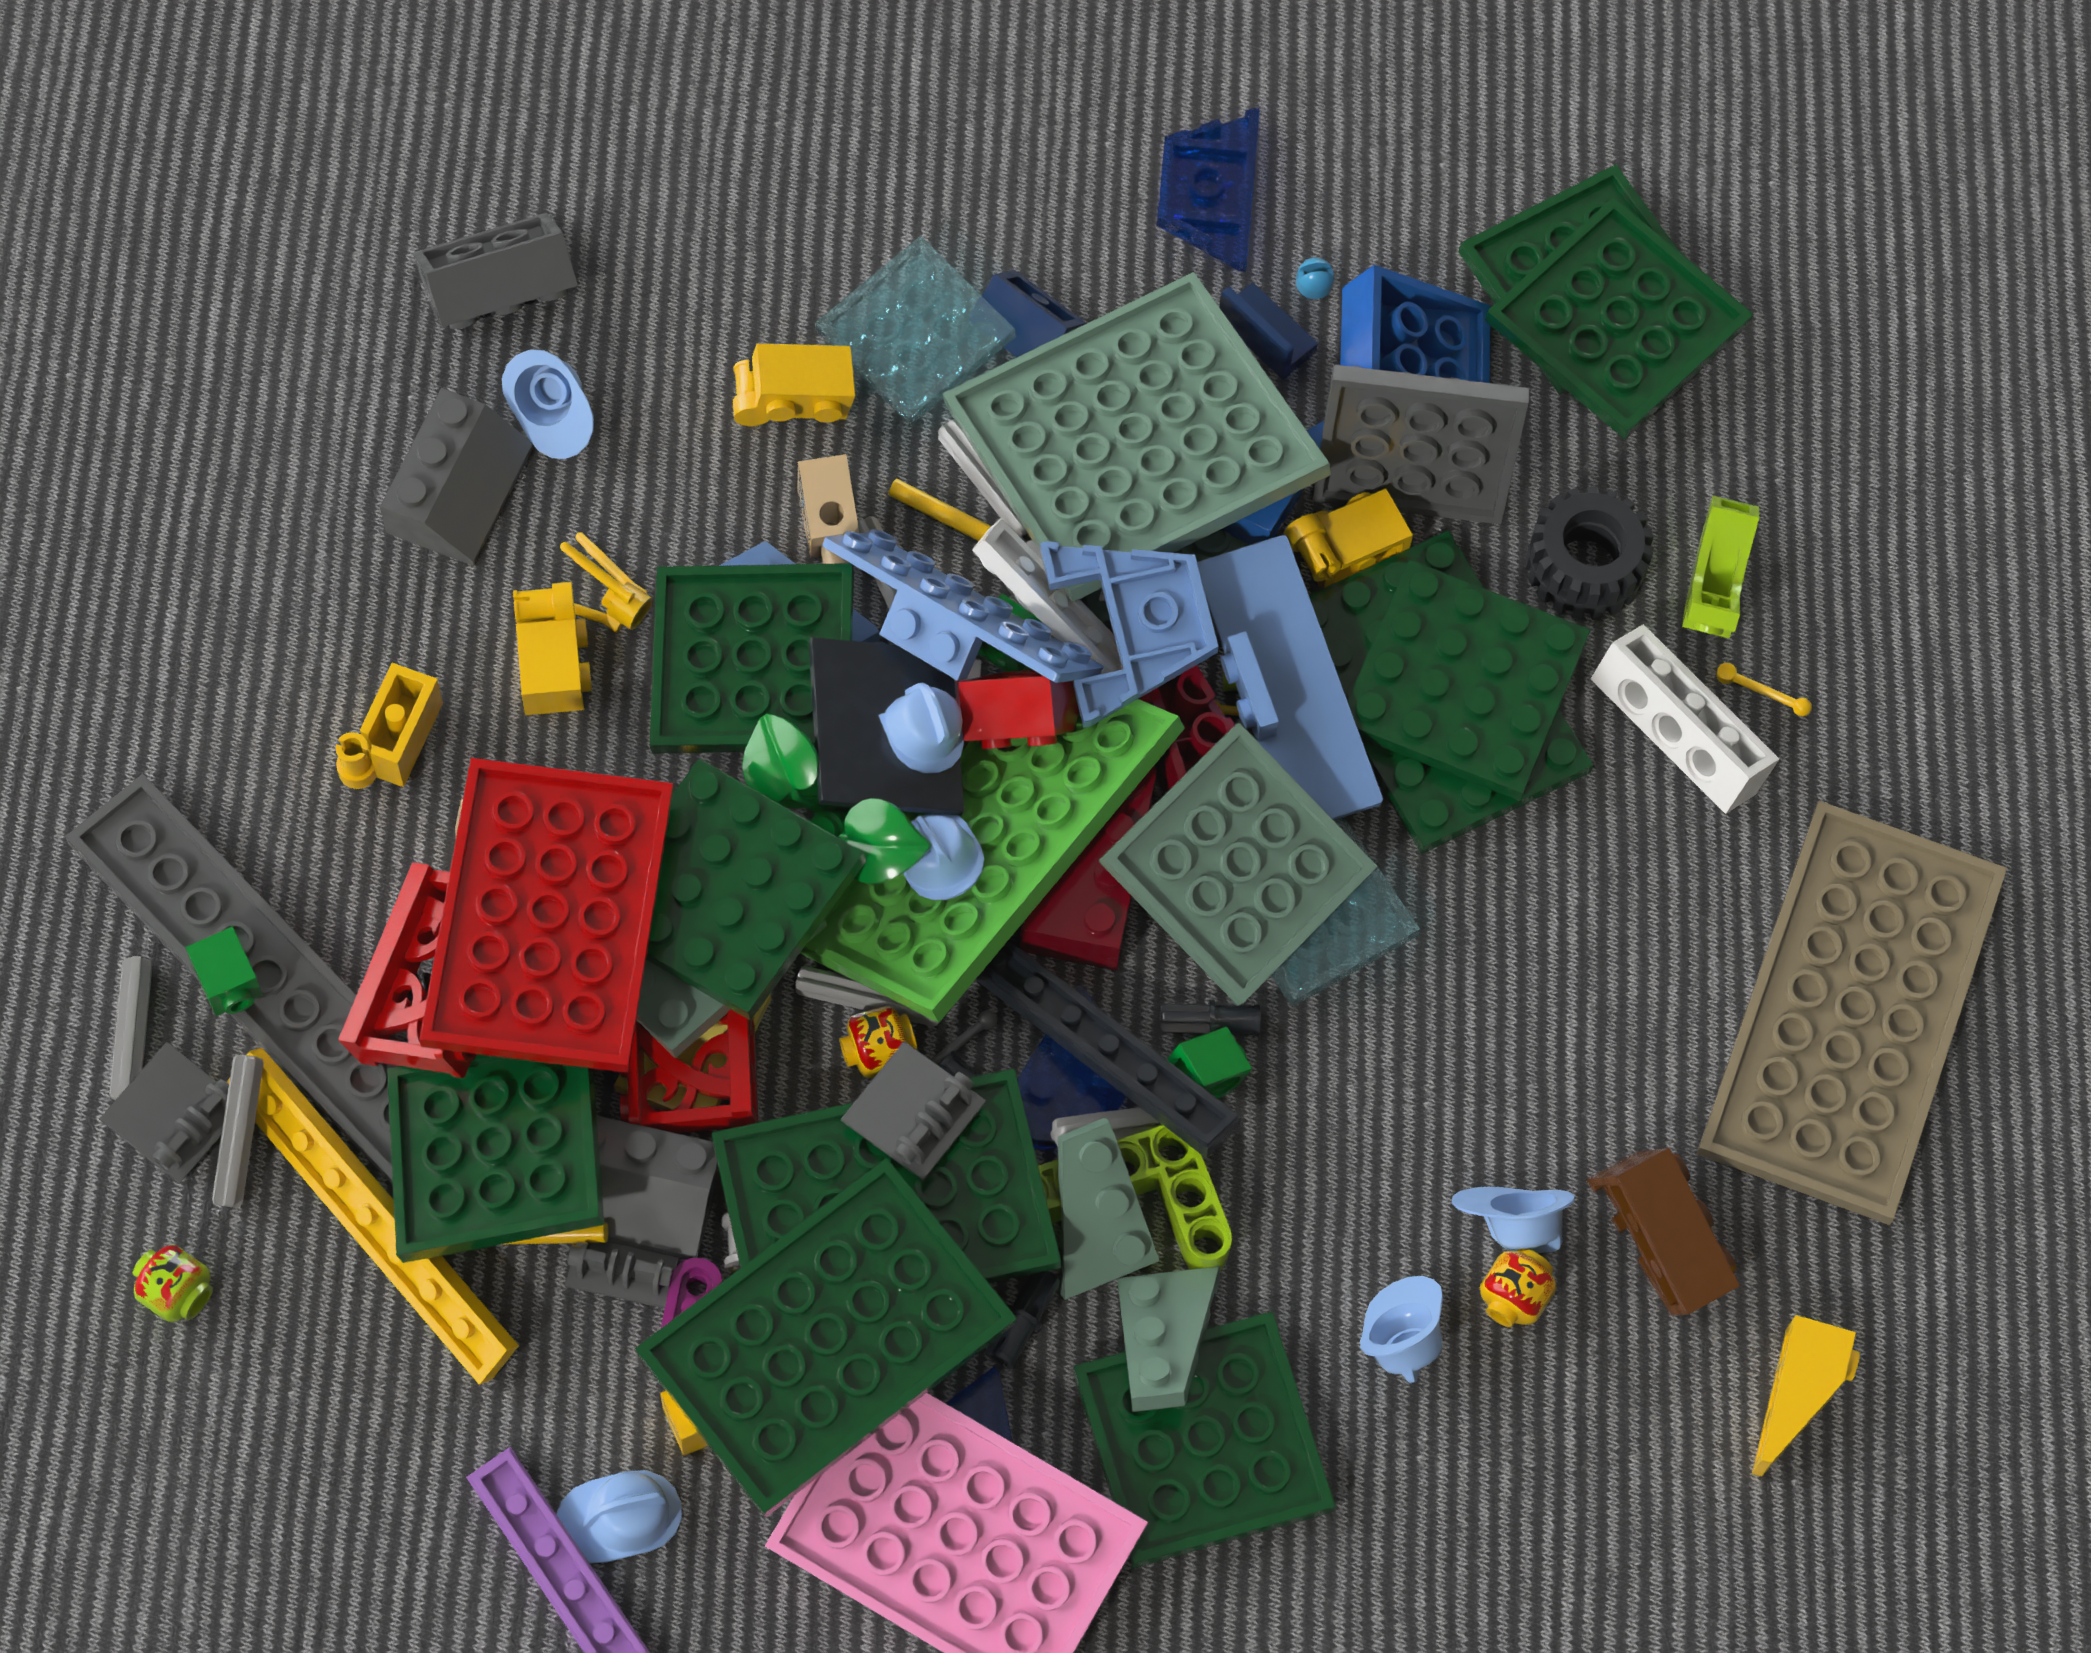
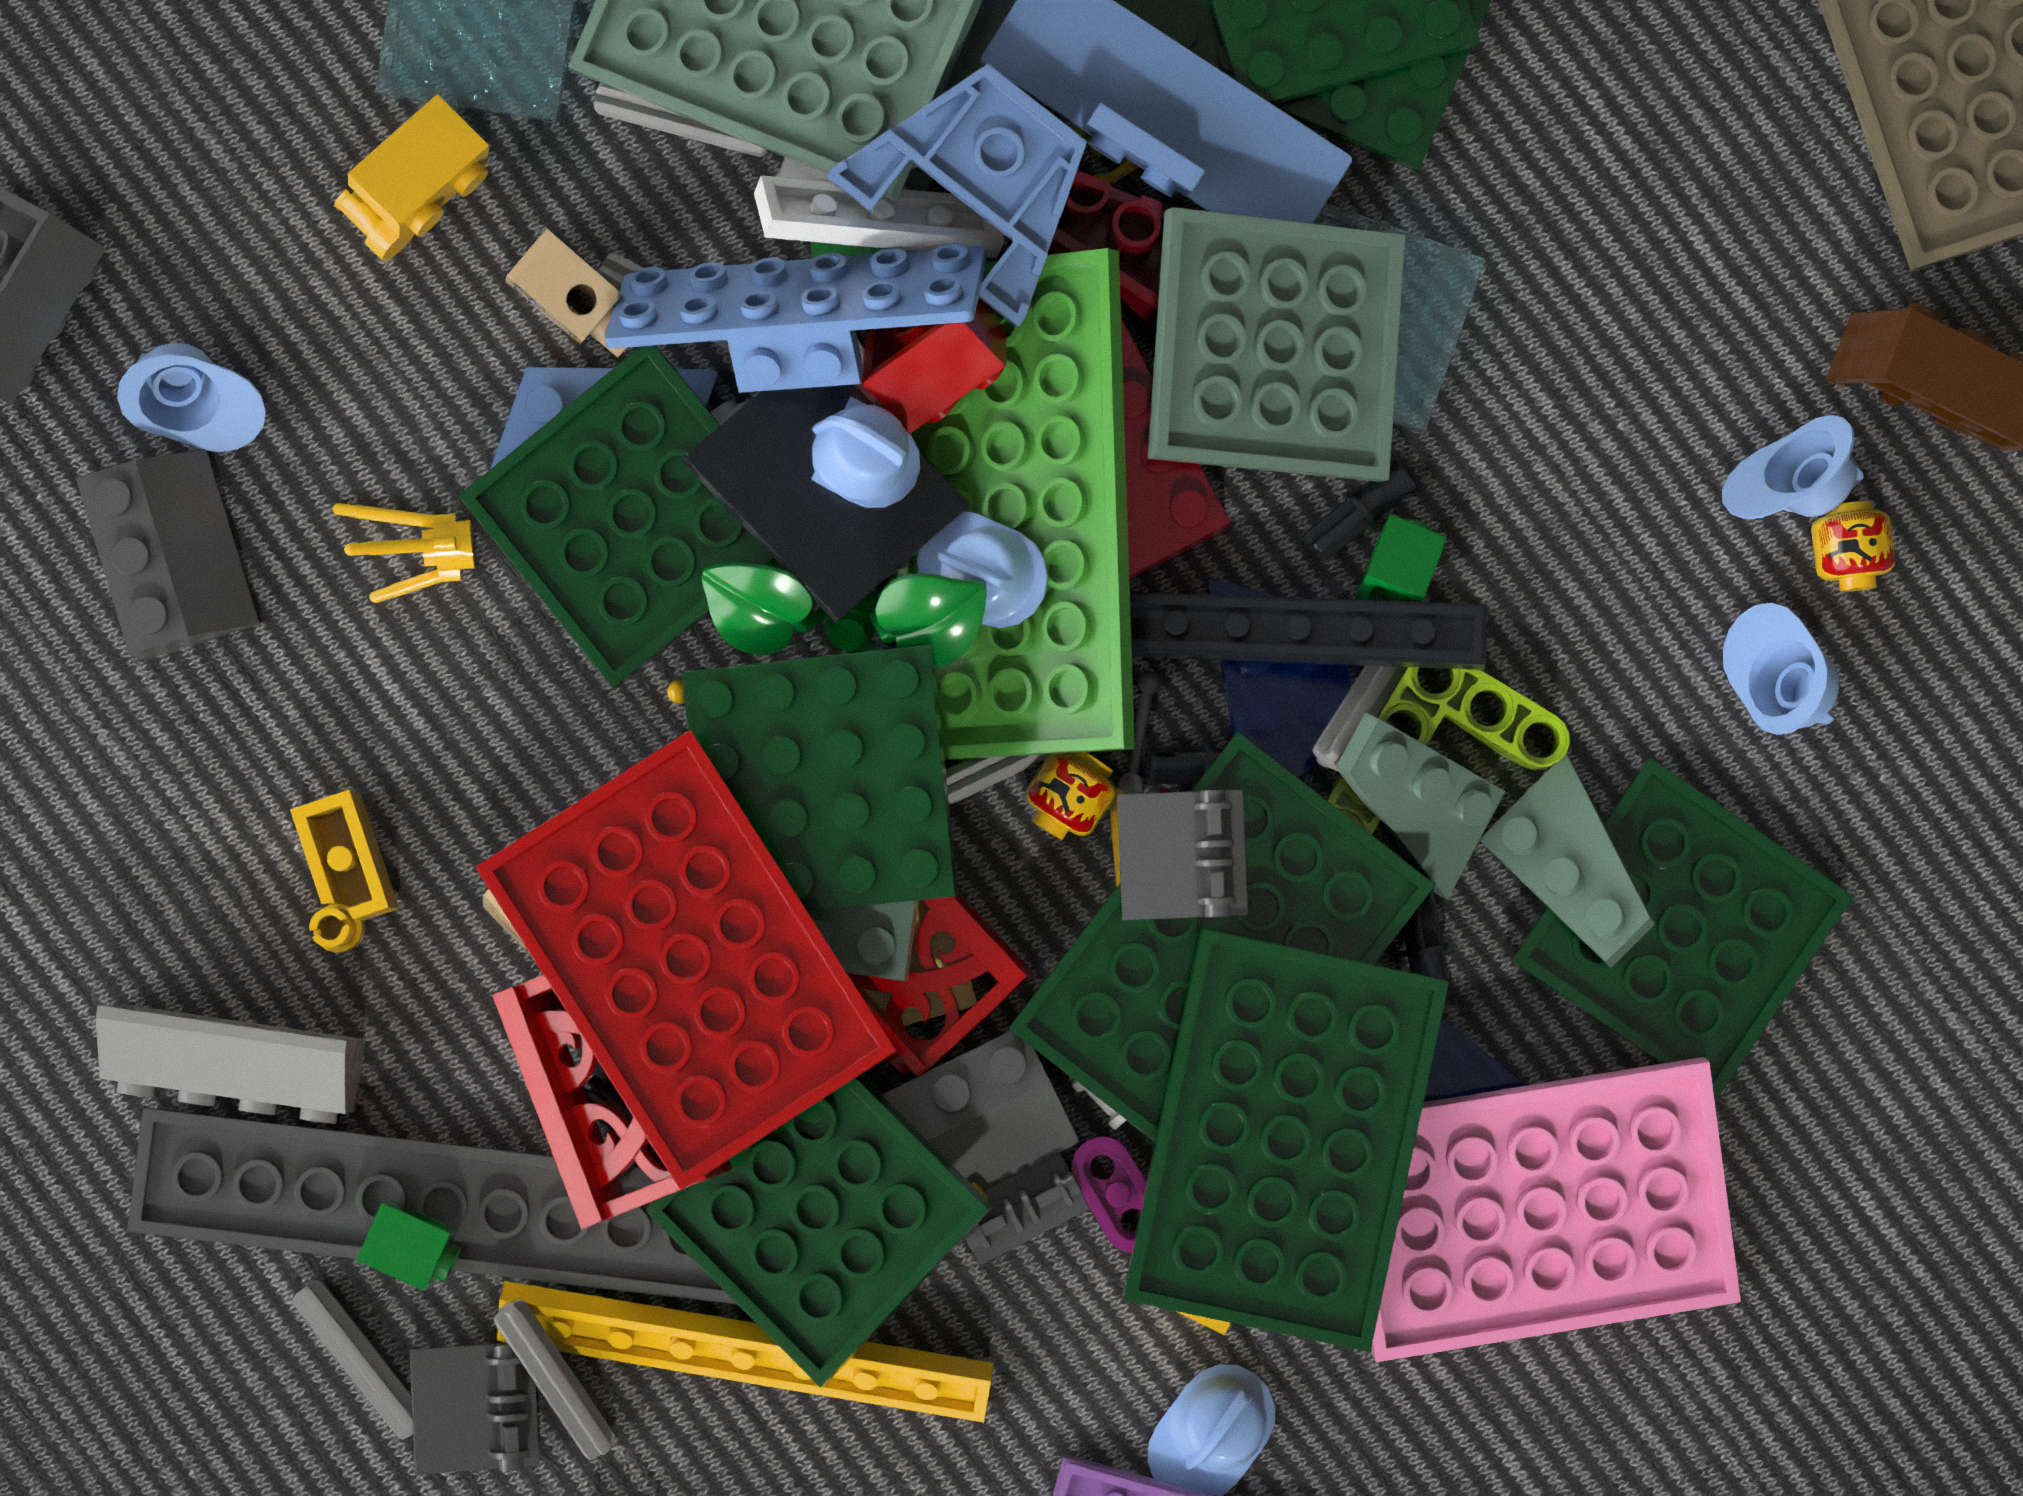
camera: 35 degrees left, 20 degrees up
(221, 783) = (228, 1059): none -> light grey slope
(549, 650) = (418, 657): yellow hinge -> none
(938, 509) = (684, 187): yellow bar -> none

